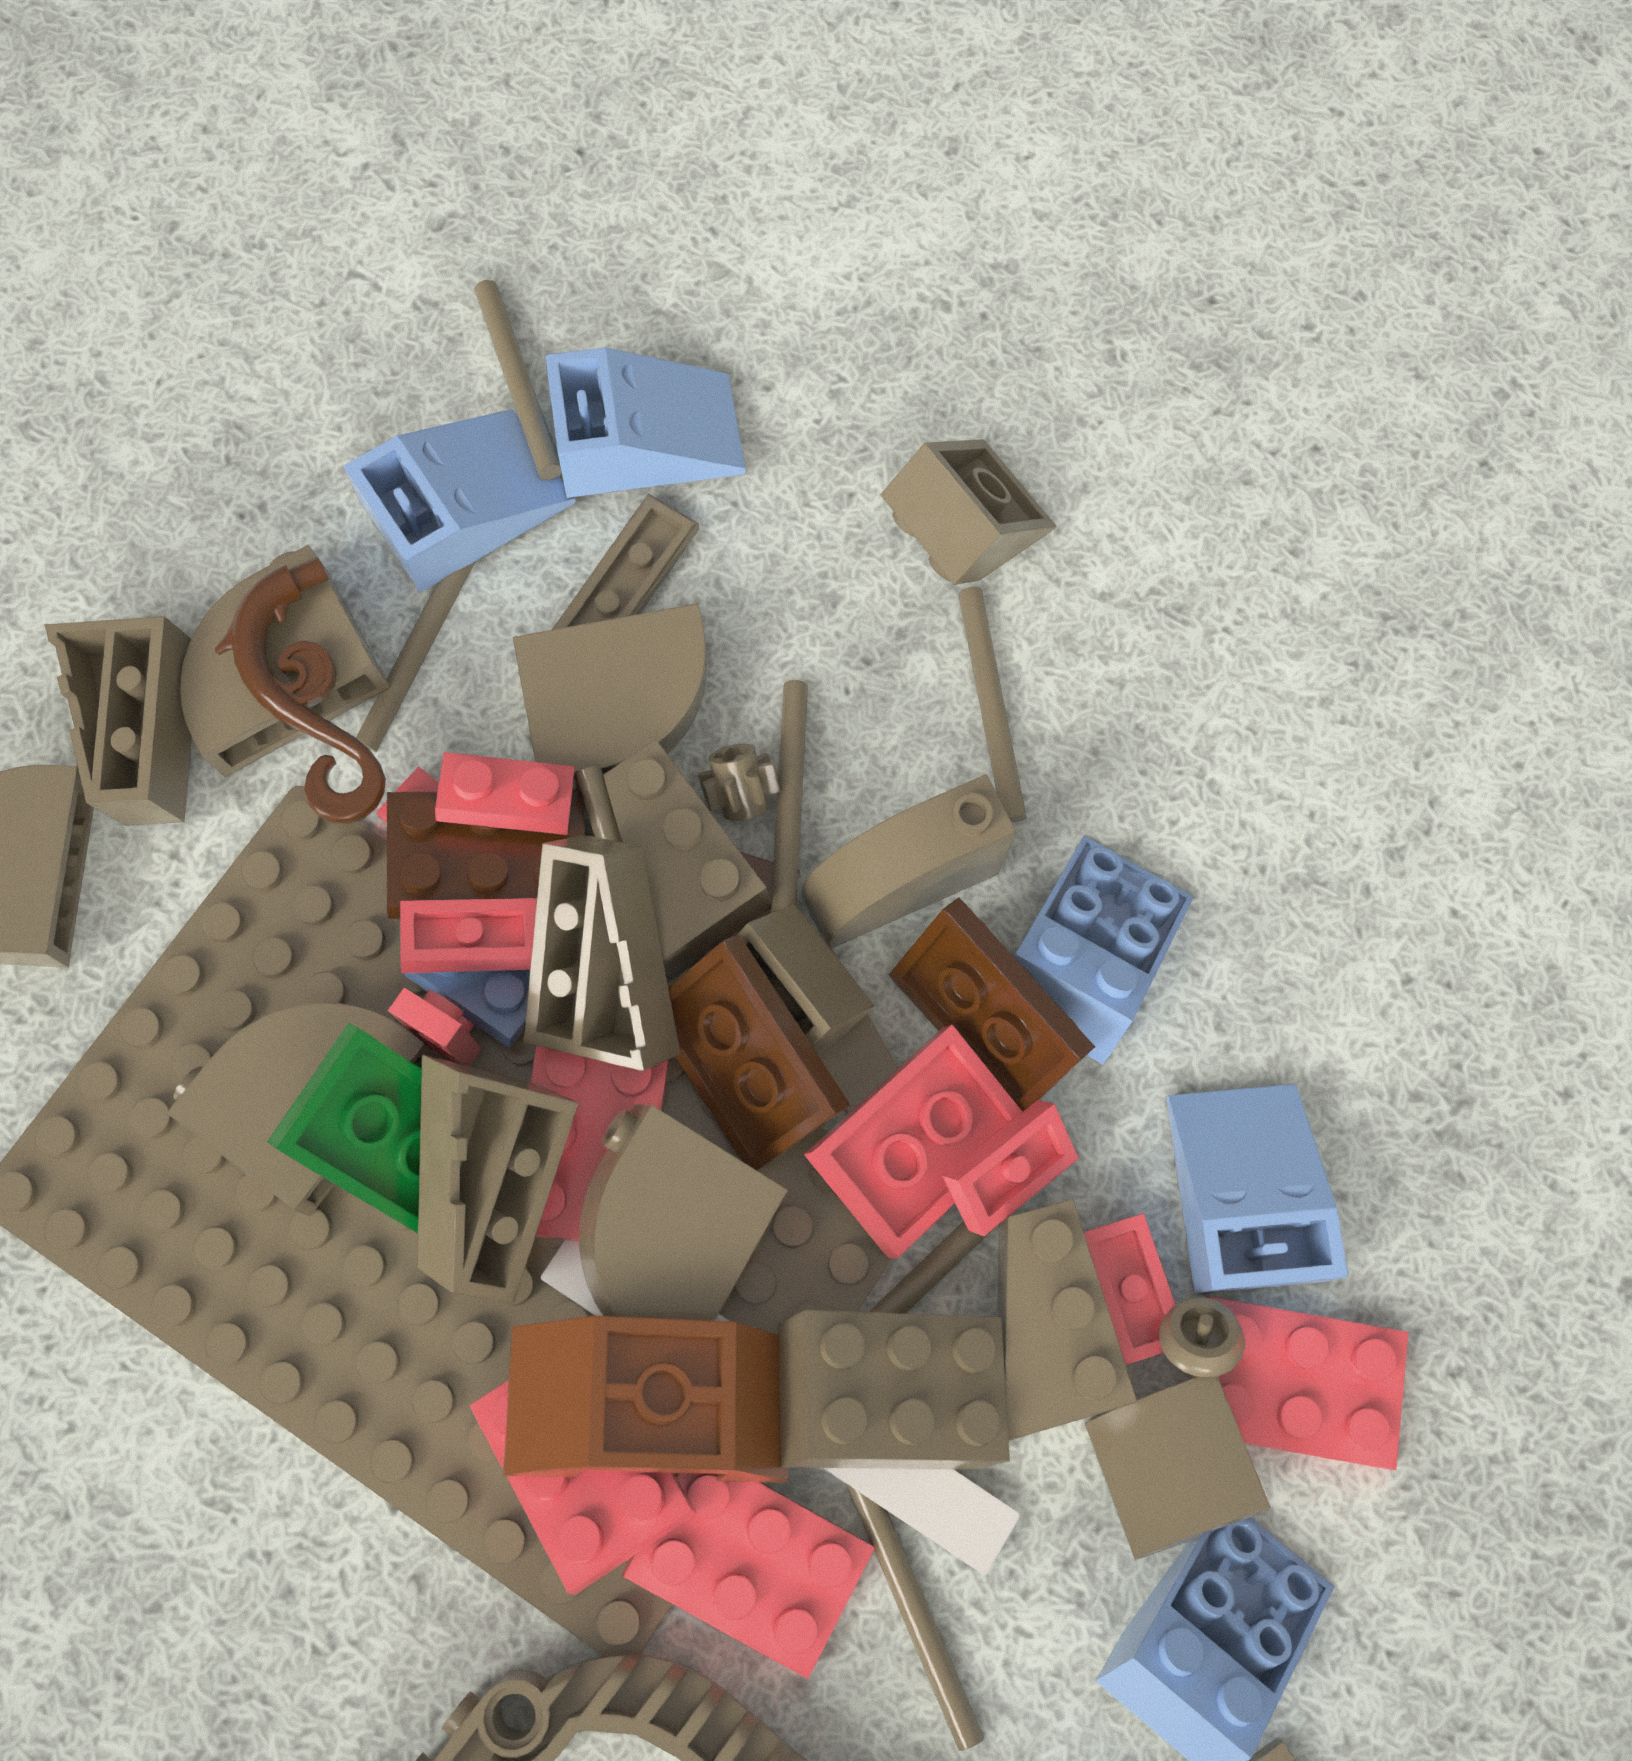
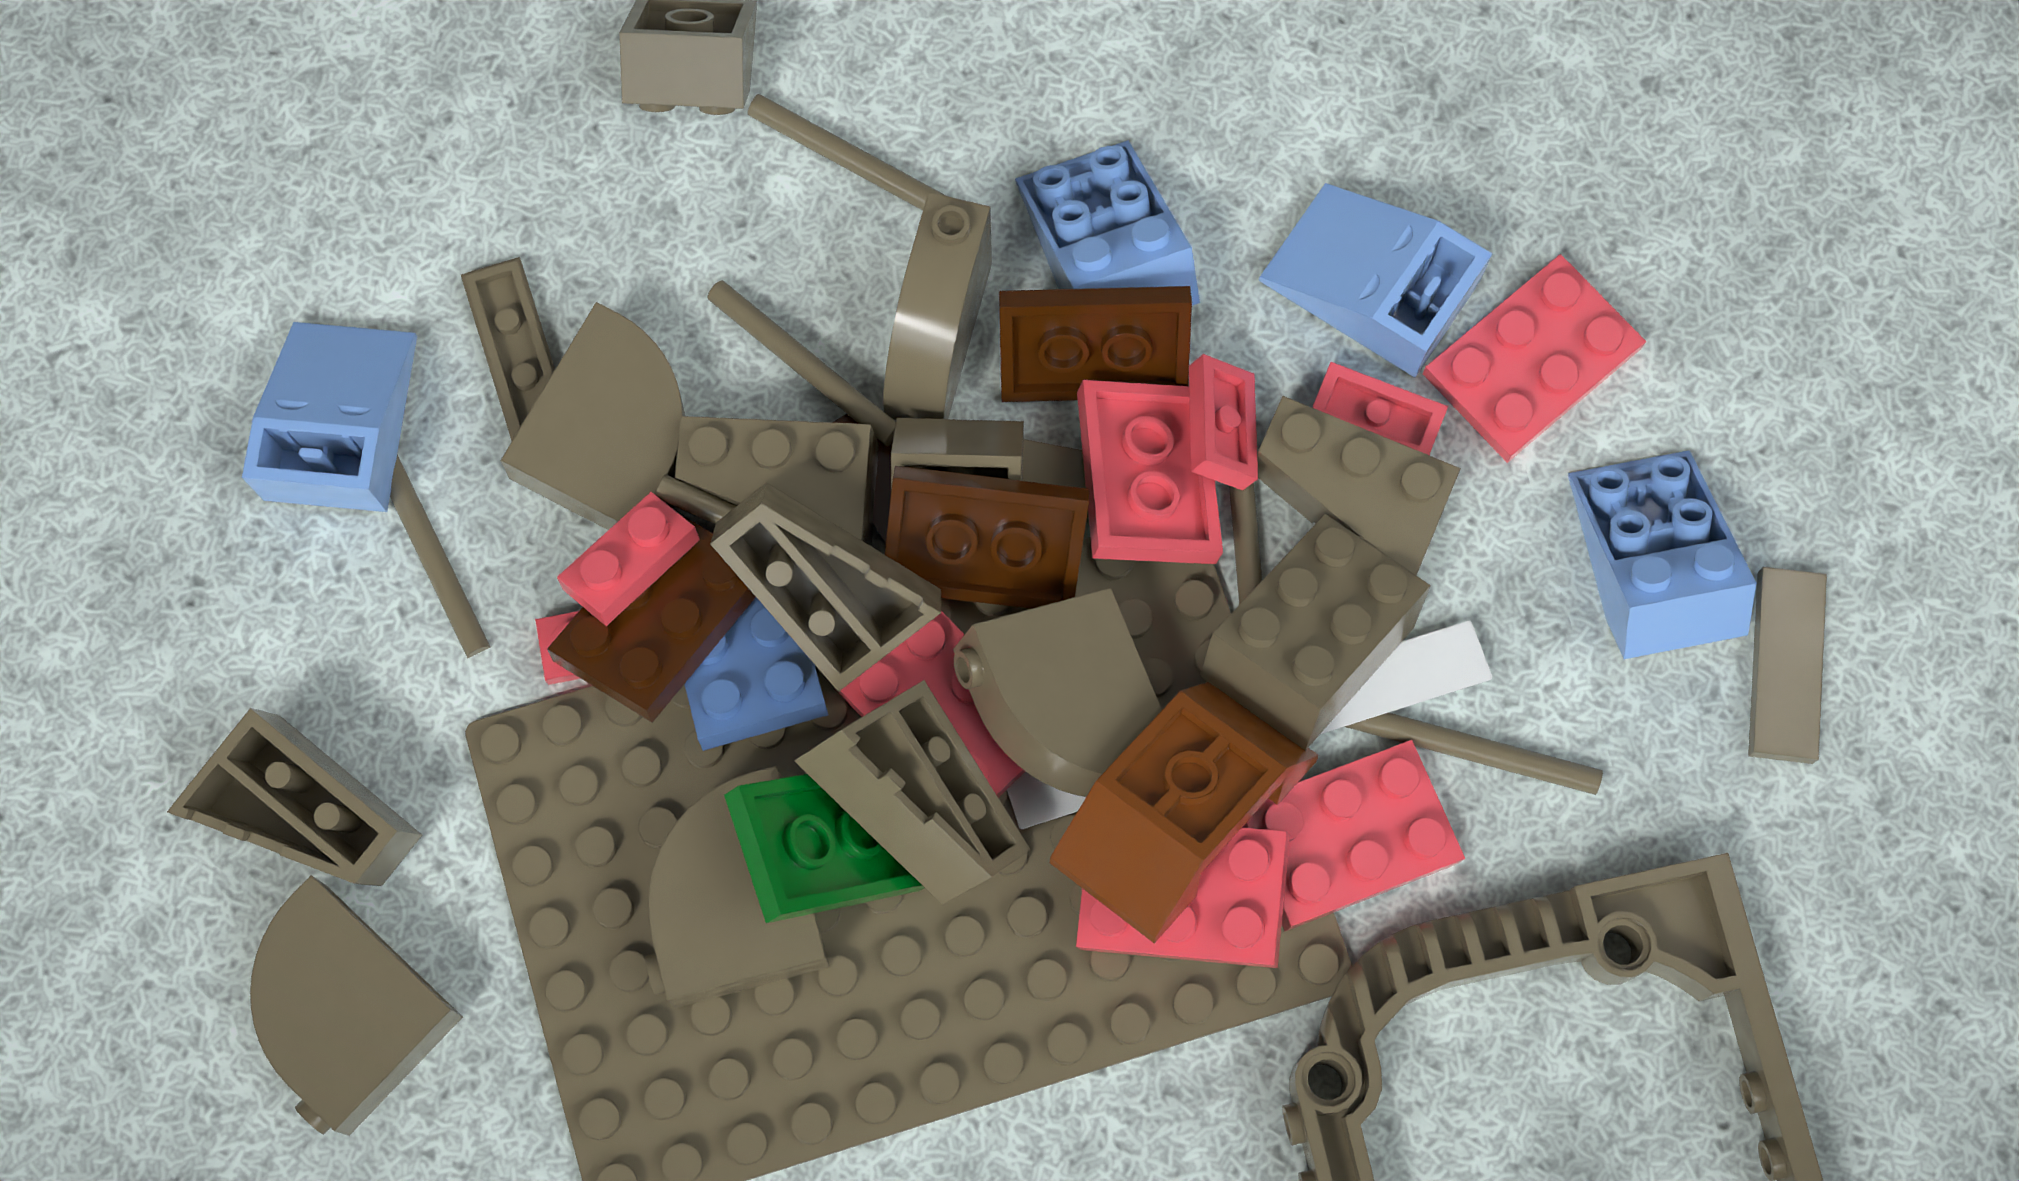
camera: 45 degrees left, 0 degrees up
(221, 710) = (353, 659): dark tan brick -> none
(292, 702) = (410, 665): reddish brown plant -> none
(437, 1025) = (771, 741): coral plate -> none
(467, 935) = (721, 667): coral plate -> none
(518, 380) = (272, 297): dark tan bar -> none
(640, 421) = (398, 233): light blue slope -> none
(739, 782) = (761, 386): dark tan gear -> none
(1176, 1466) = (1523, 483): dark tan slope -> none
(1202, 1337) = (1451, 389): dark tan hat -> none

